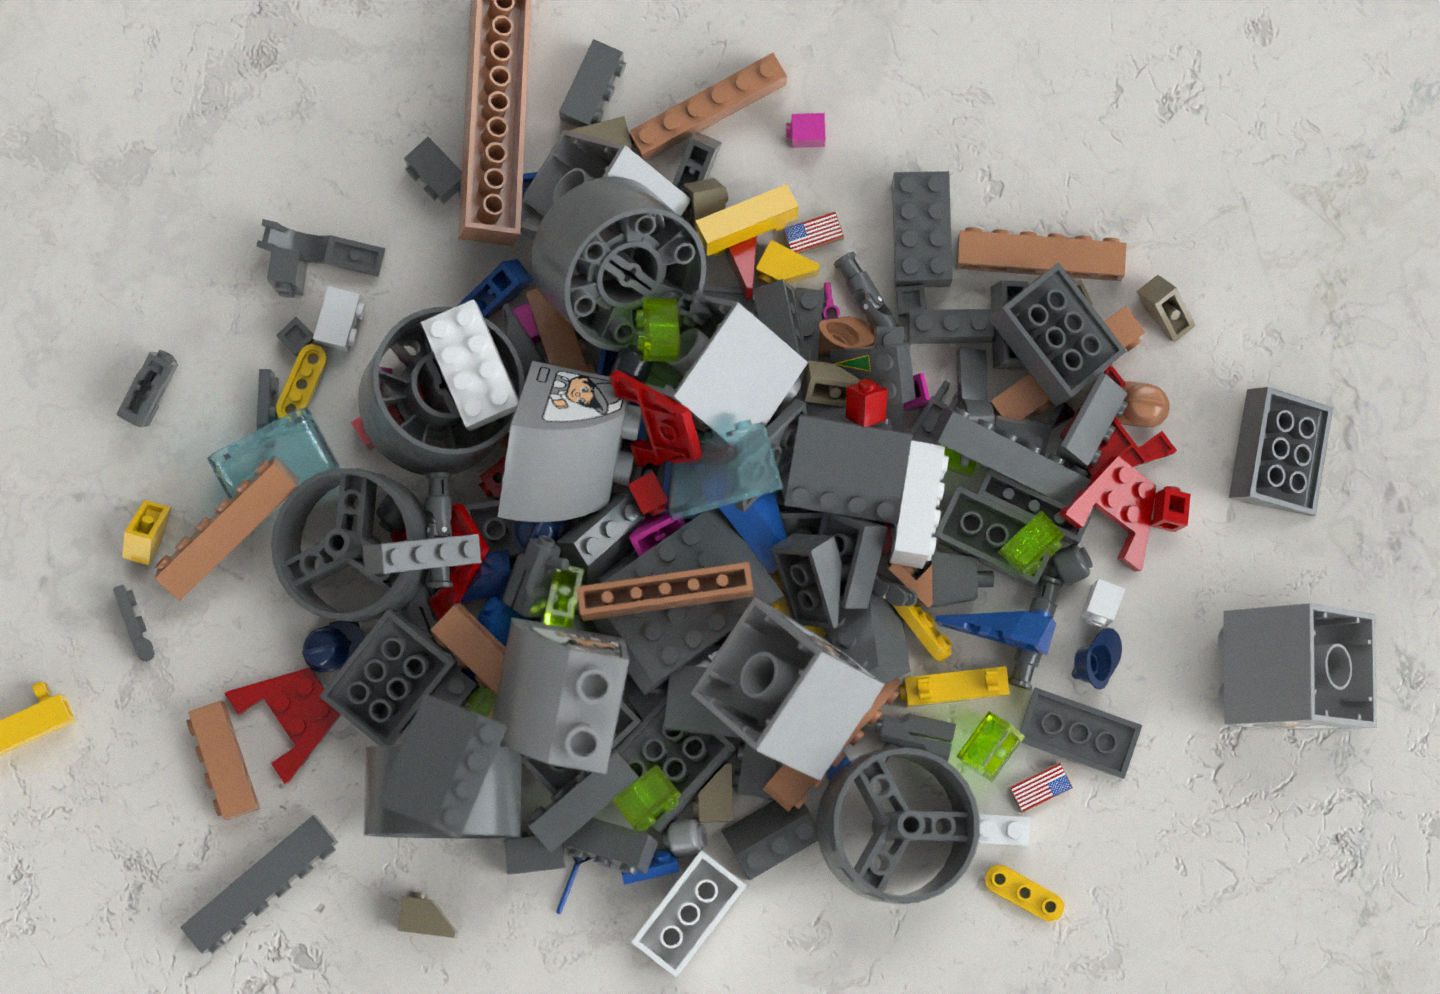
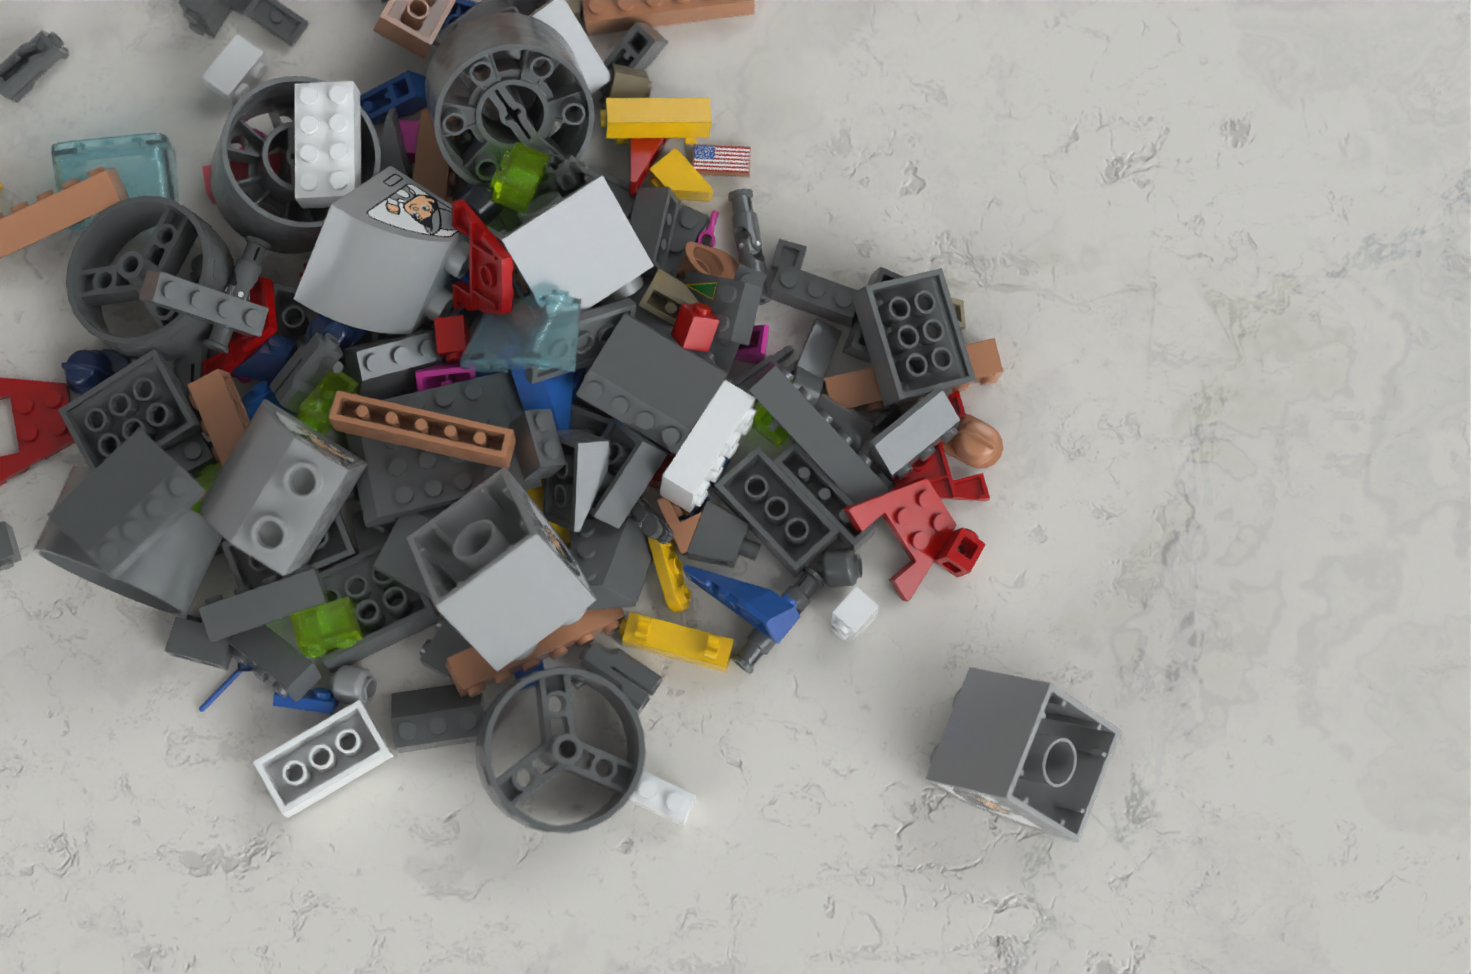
camera: 20 degrees right, 5 degrees down
(267, 387) = (140, 108): dark grey hinge -> none
(295, 336) = (188, 71): dark grey plate -> none
(300, 372) = (182, 106): yellow plate -> none
(424, 917) = (69, 661): dark tan slope -> none
(716, 798) = (399, 658): dark tan slope -> none
(769, 563) = (537, 444): none -> dark grey brick
(806, 130) = (754, 61): dark pink brick -> none
(922, 229) = (826, 193): dark grey brick -> none
(990, 746) = (686, 712): clear neon green brick -> none
(1010, 891) = (667, 884): yellow plate -> none
(1031, 544) = (805, 528): clear neon green brick -> none
(1037, 254) = (917, 253): nougat brick -> none
(1040, 787) = (721, 774): tile -> none
(1079, 733) = (781, 735): dark grey plate -> none
(1099, 659) = (830, 669): dark blue piece -> none
(1166, 307) = (1035, 357): dark tan slope -> none
(1281, 451) = (1093, 538): dark grey slope -> none

